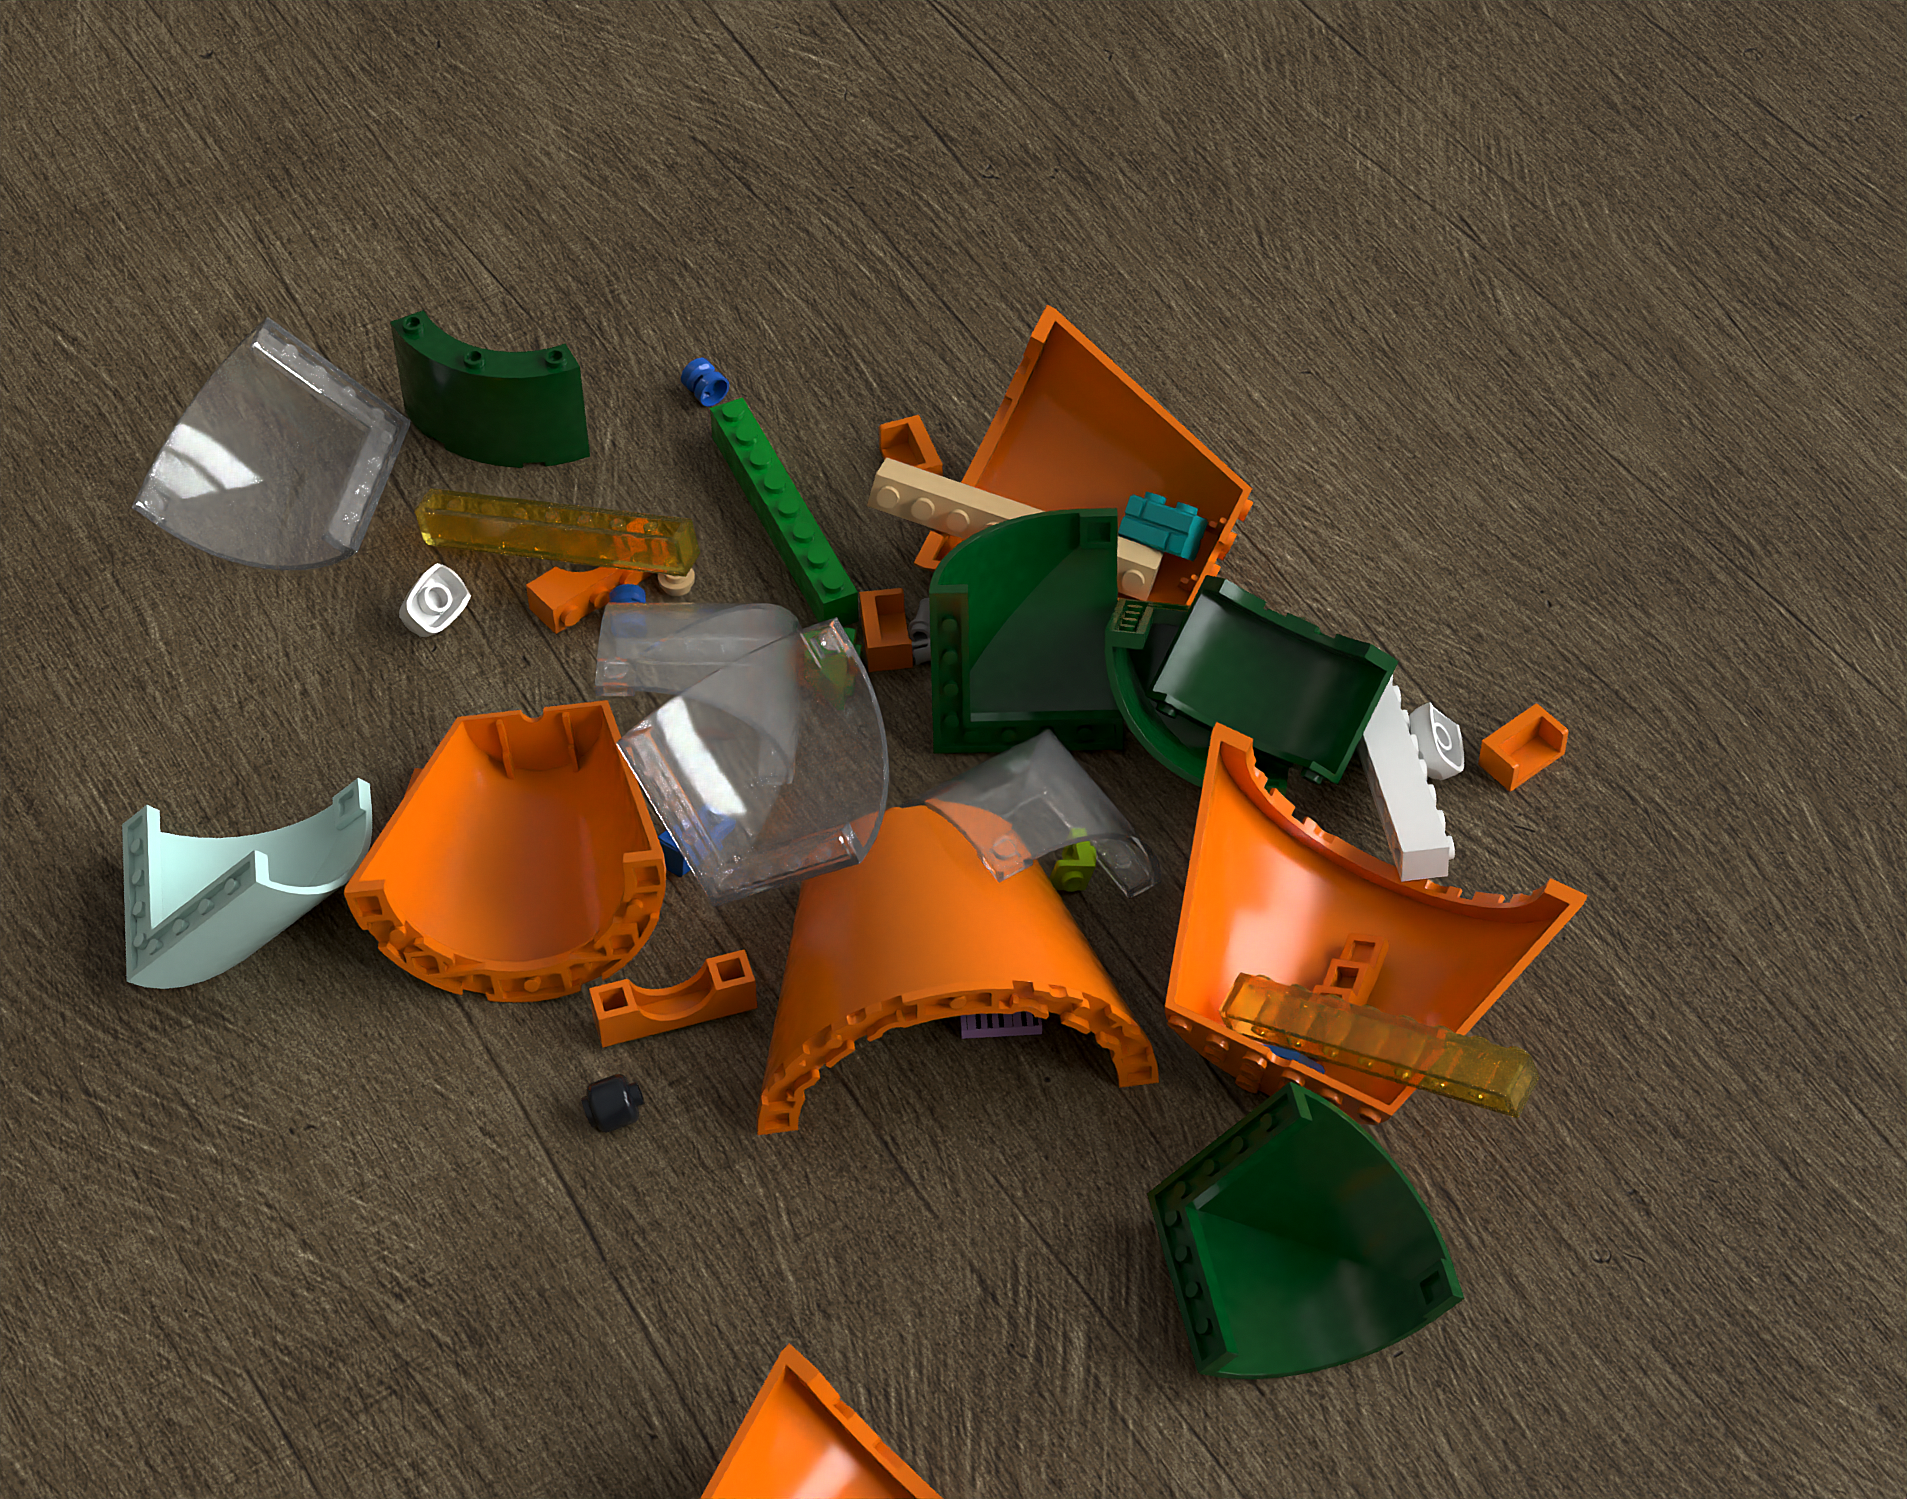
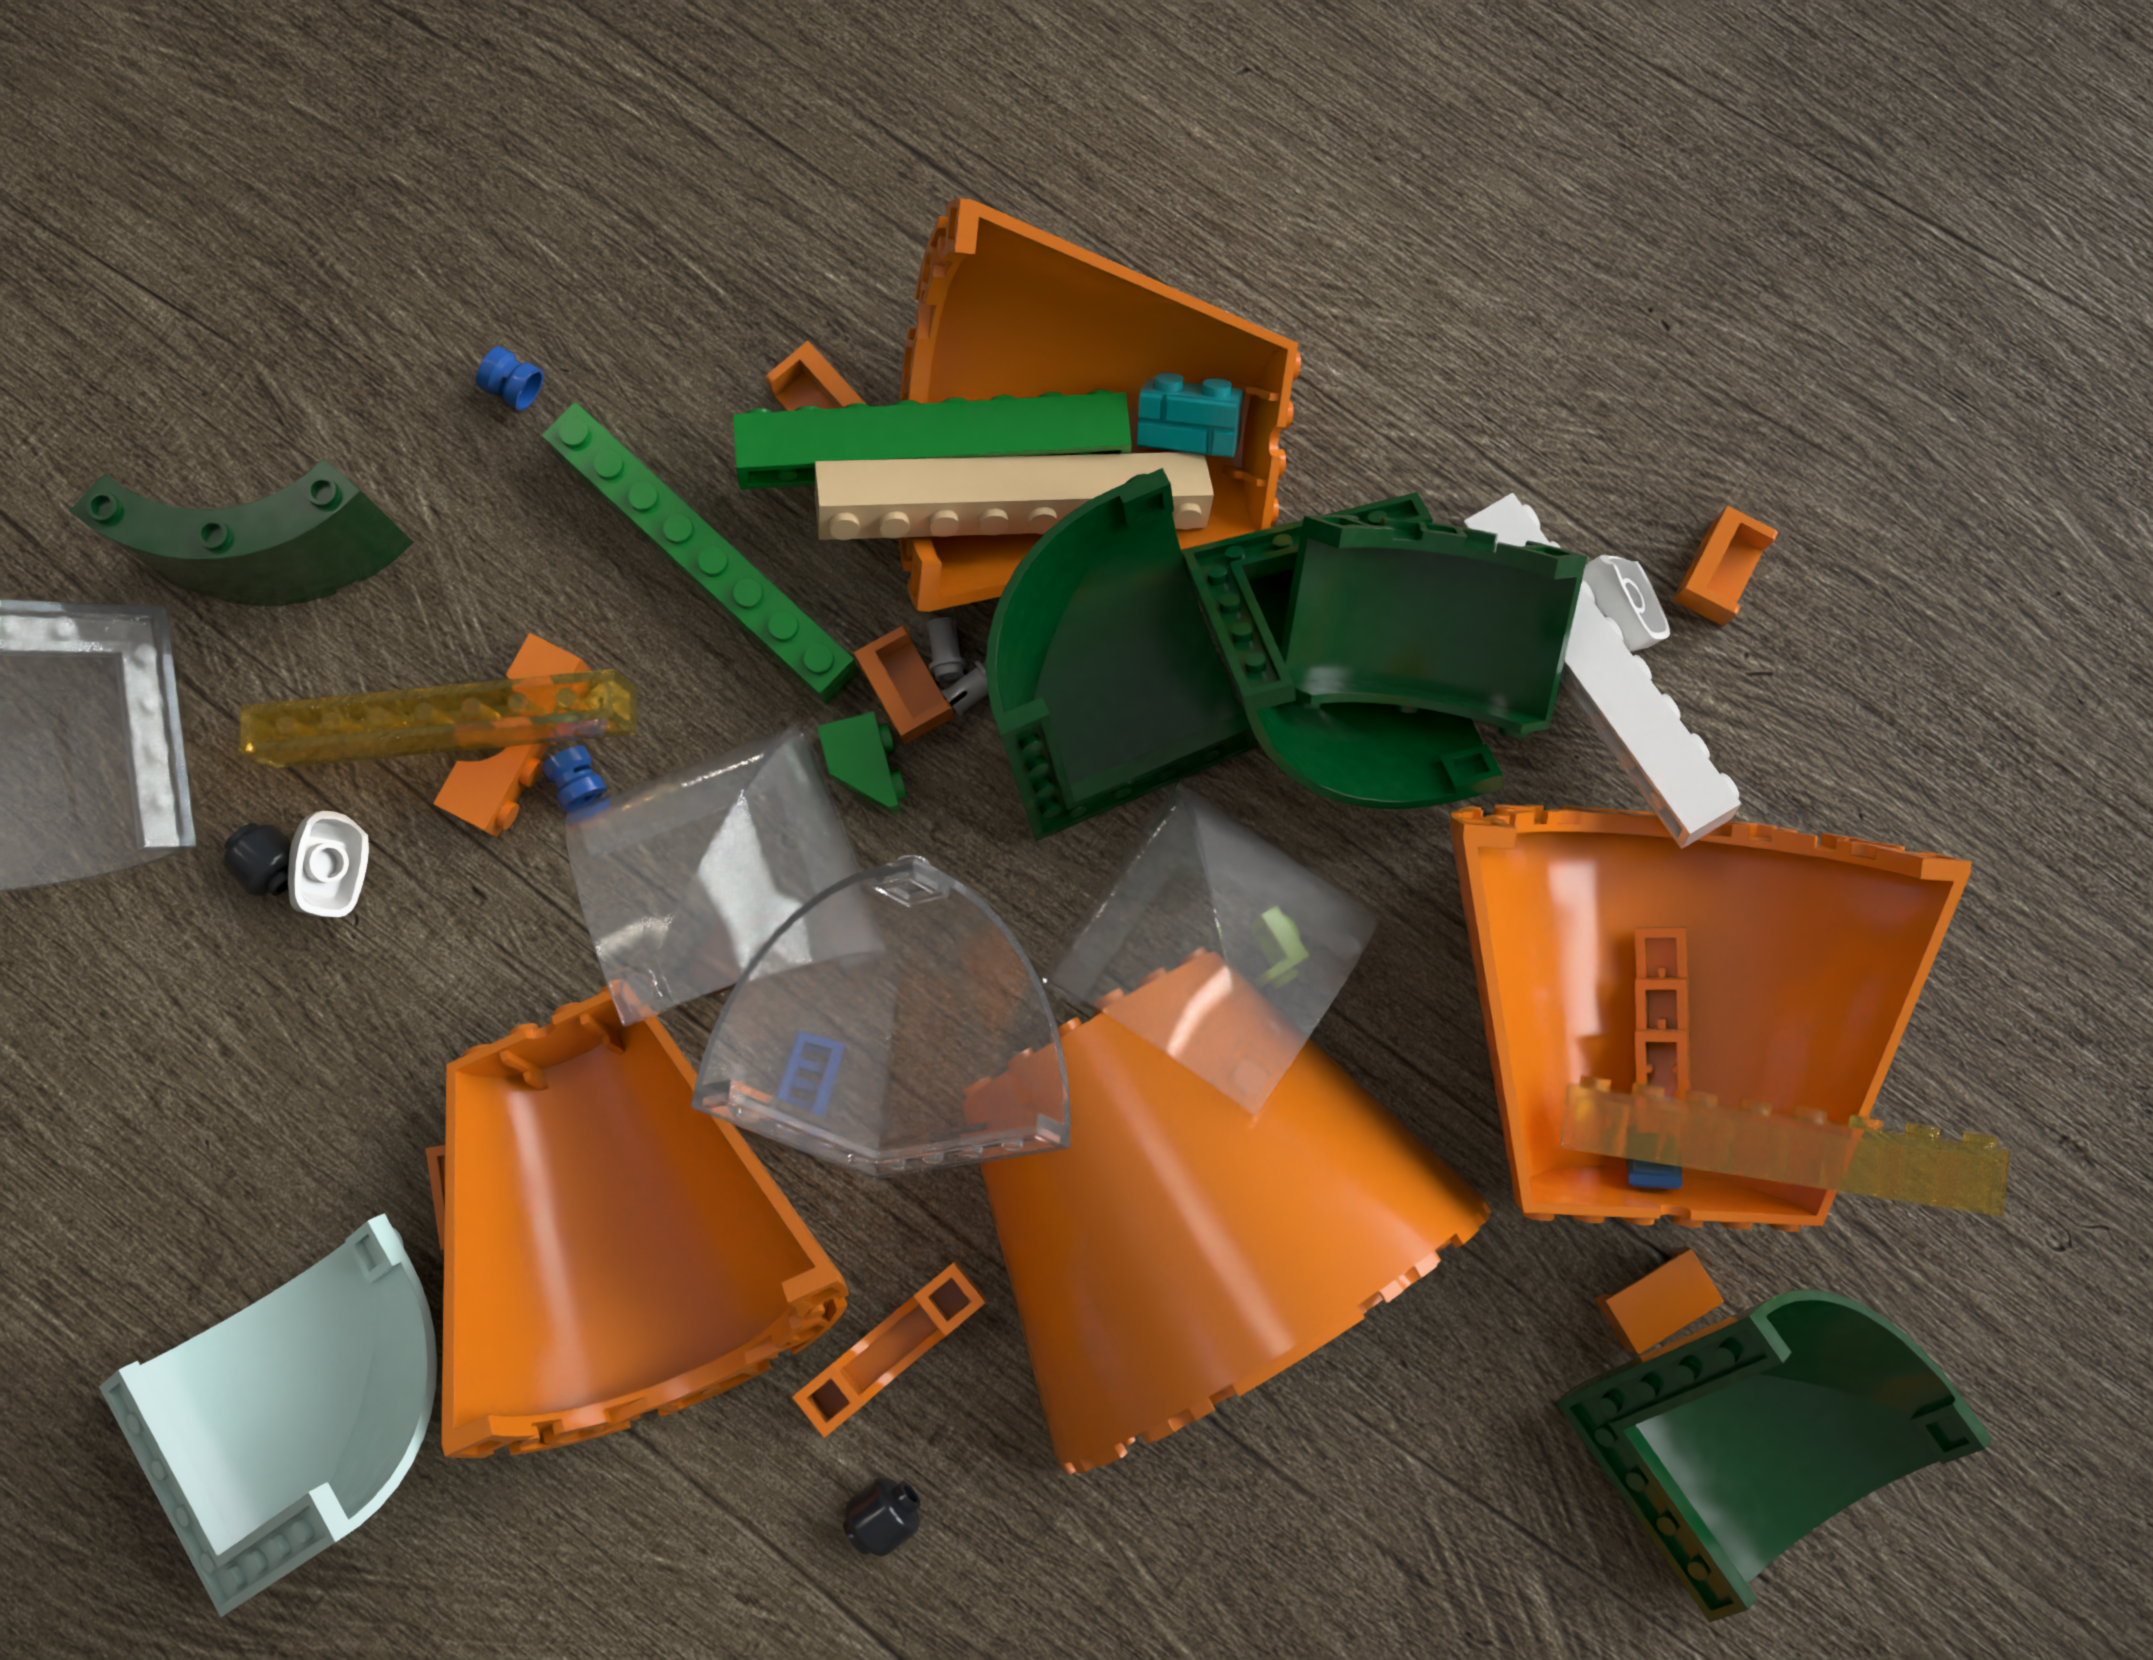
camera: 25 degrees left, 30 degrees up
(389, 586) = (258, 859): none -> black head
(863, 448) = (783, 445): none -> green brick

